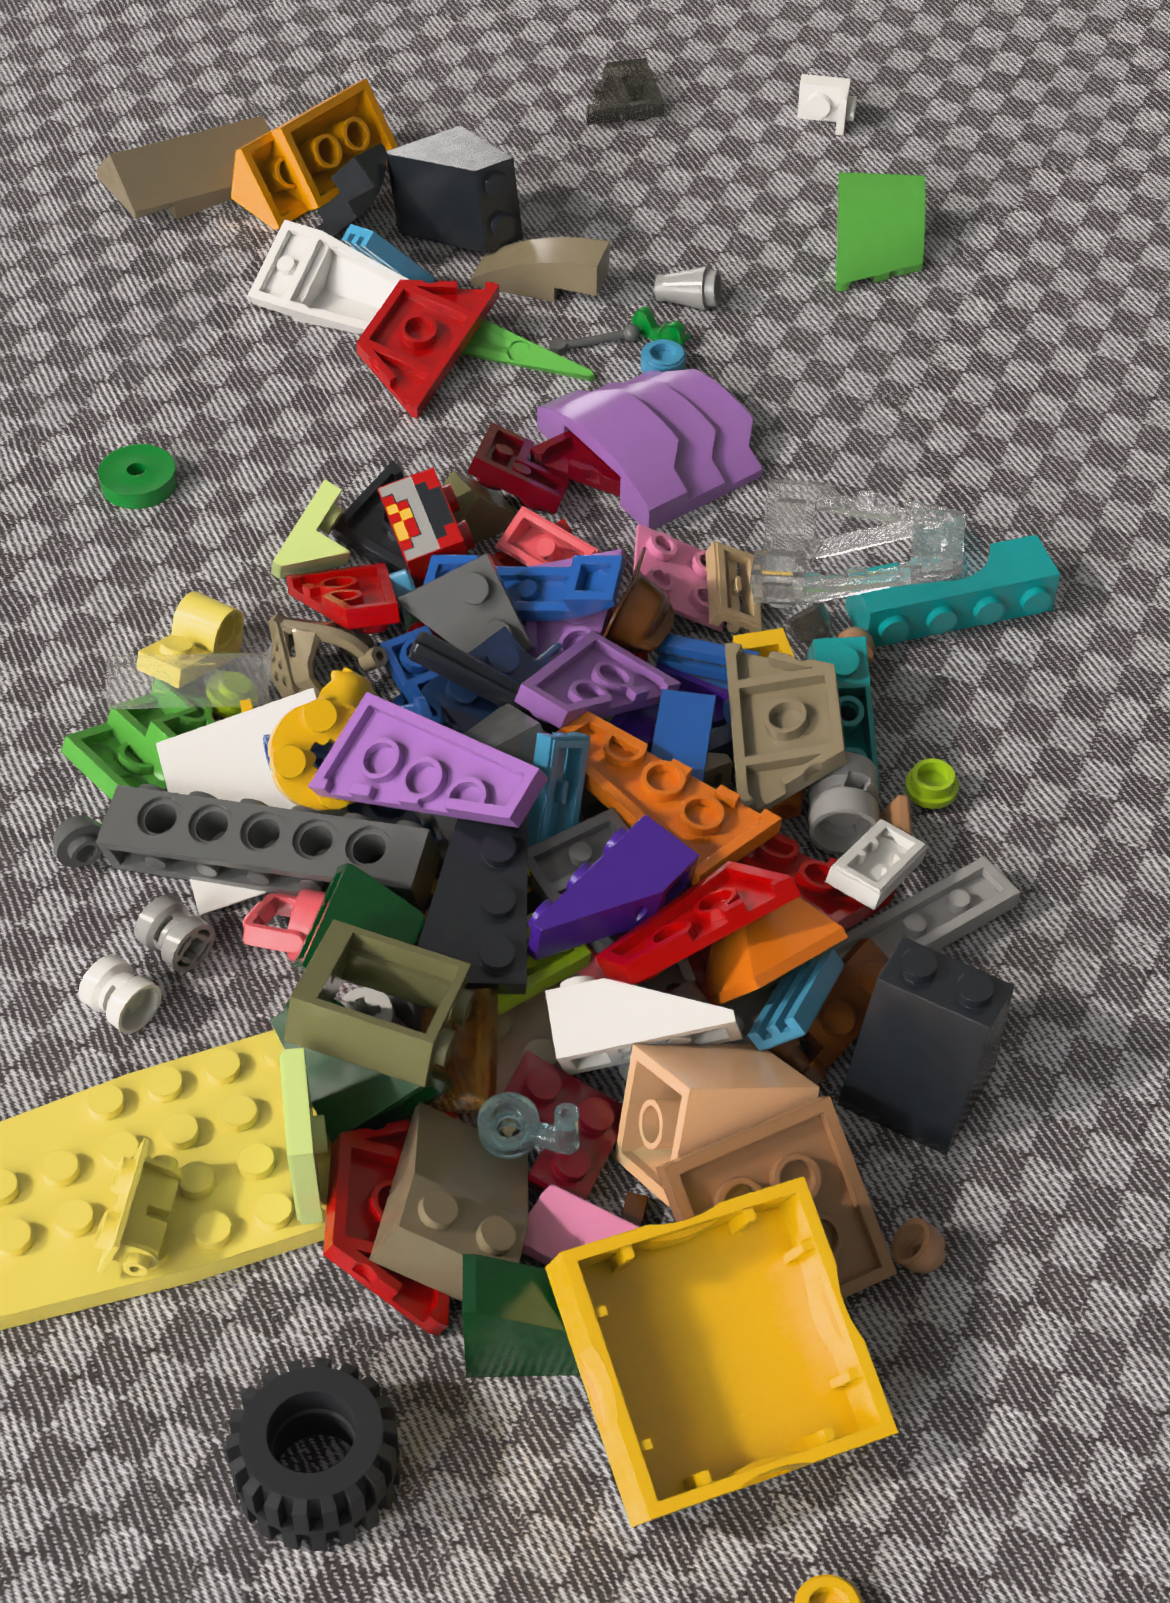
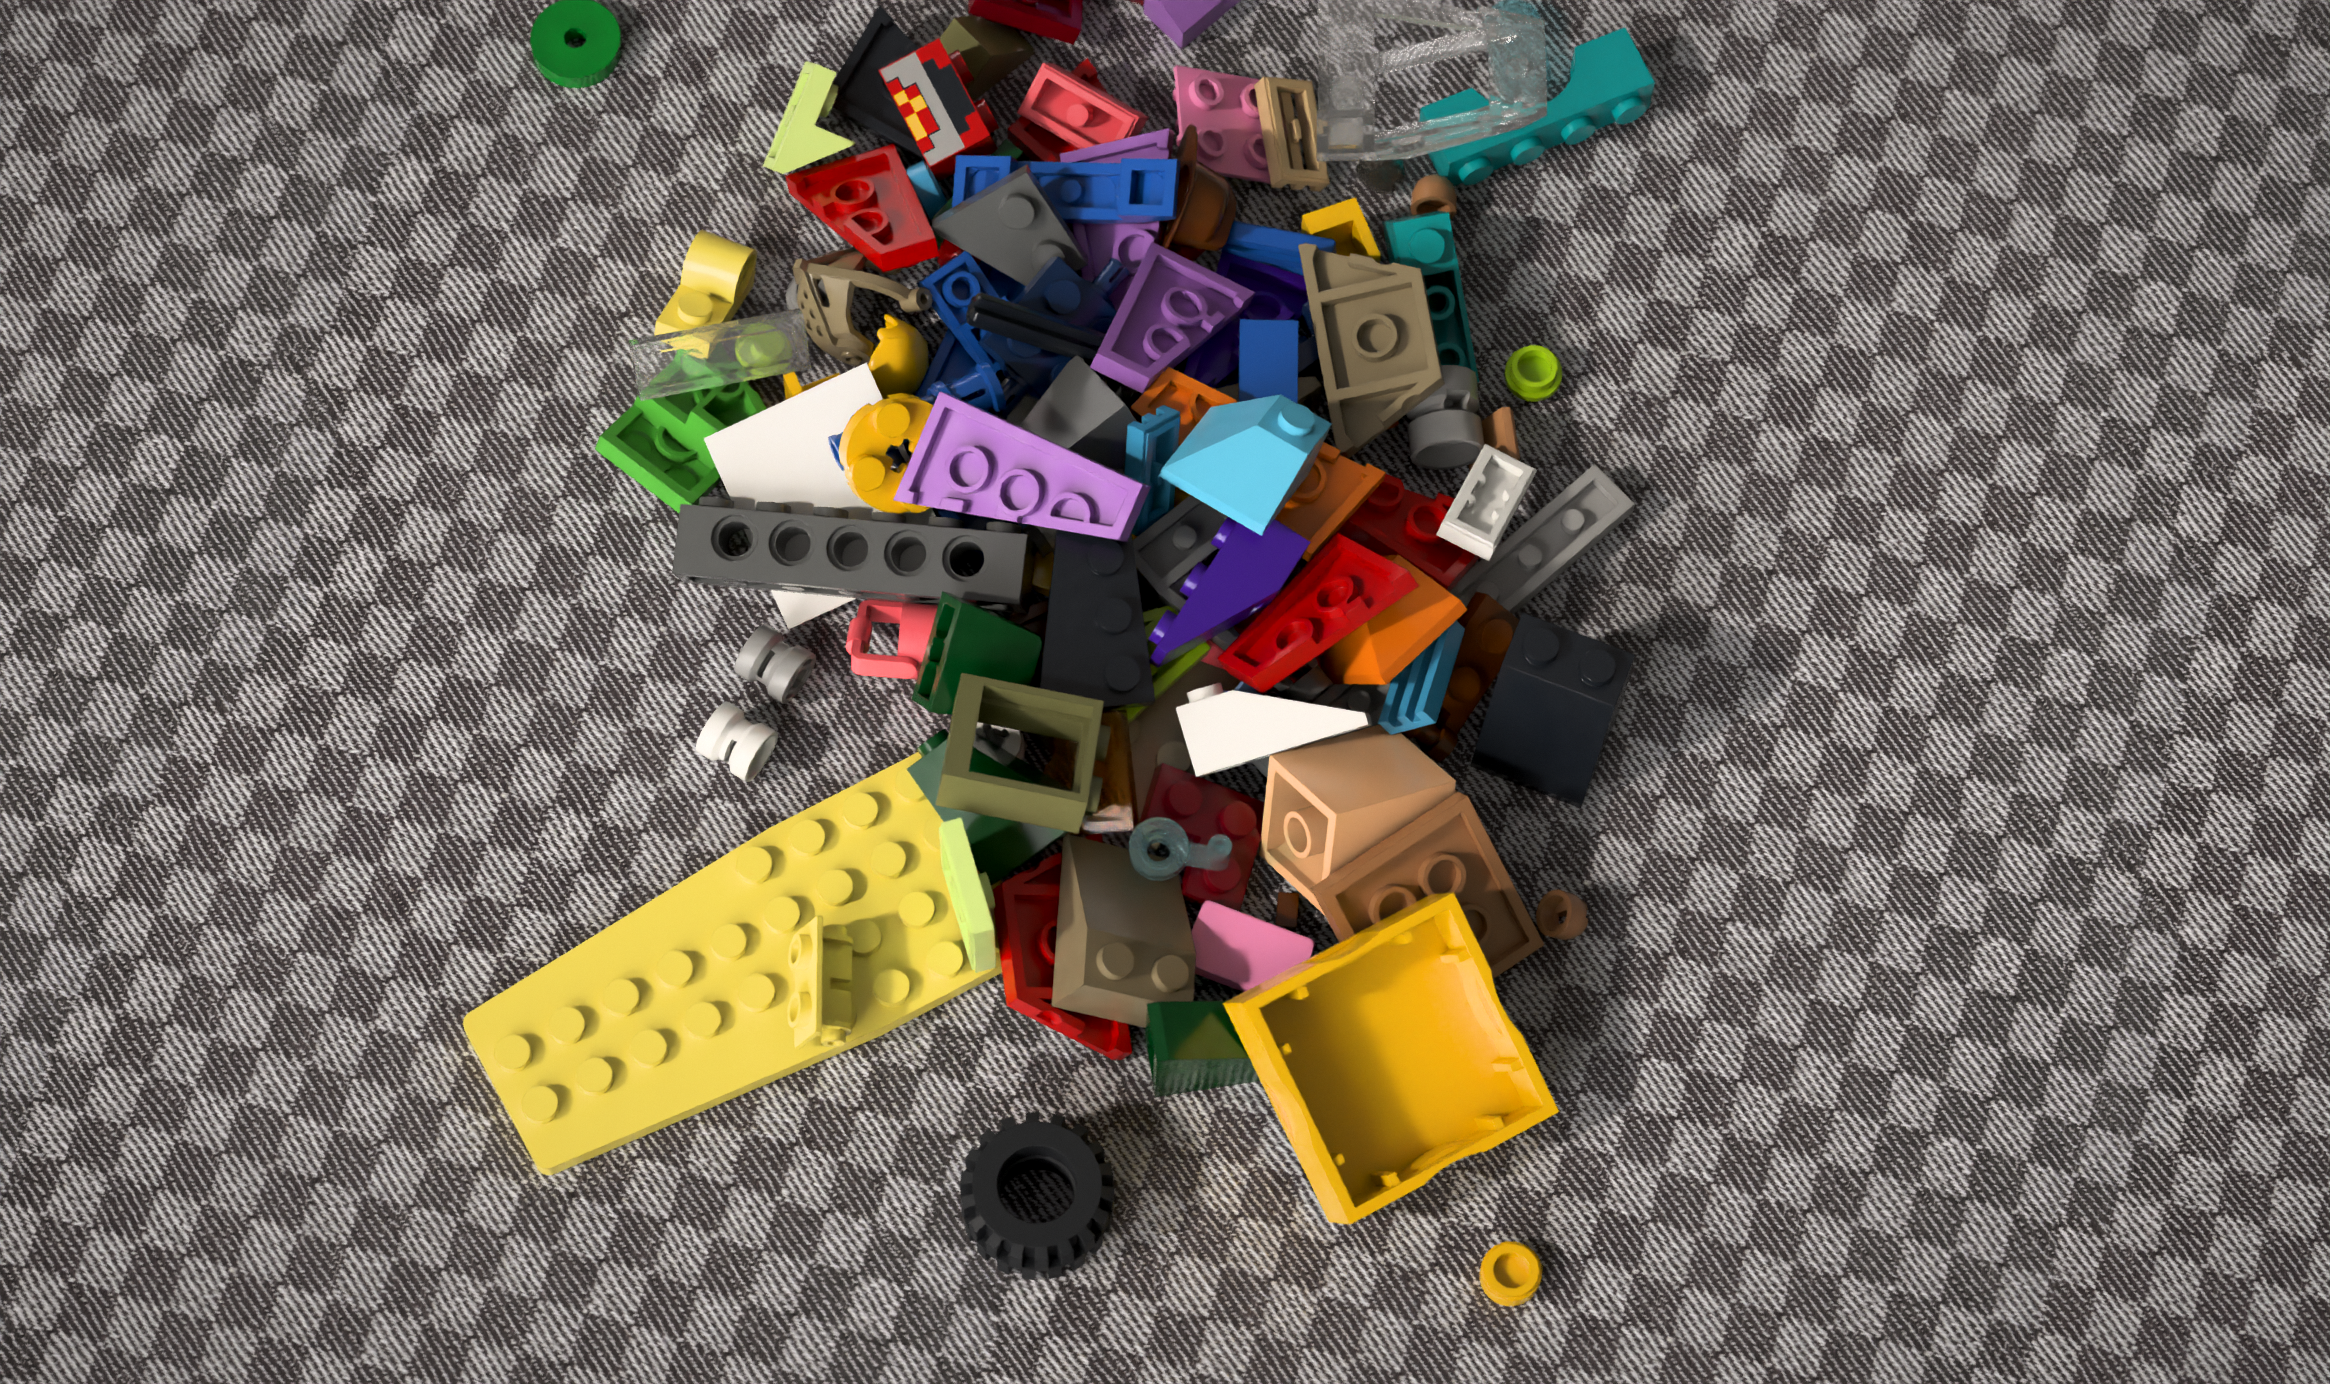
camera: 10 degrees left, 20 degrees up
(76, 841) = (647, 564): dark grey plate -> none
(654, 777) = (1248, 458): none -> medium azure slope

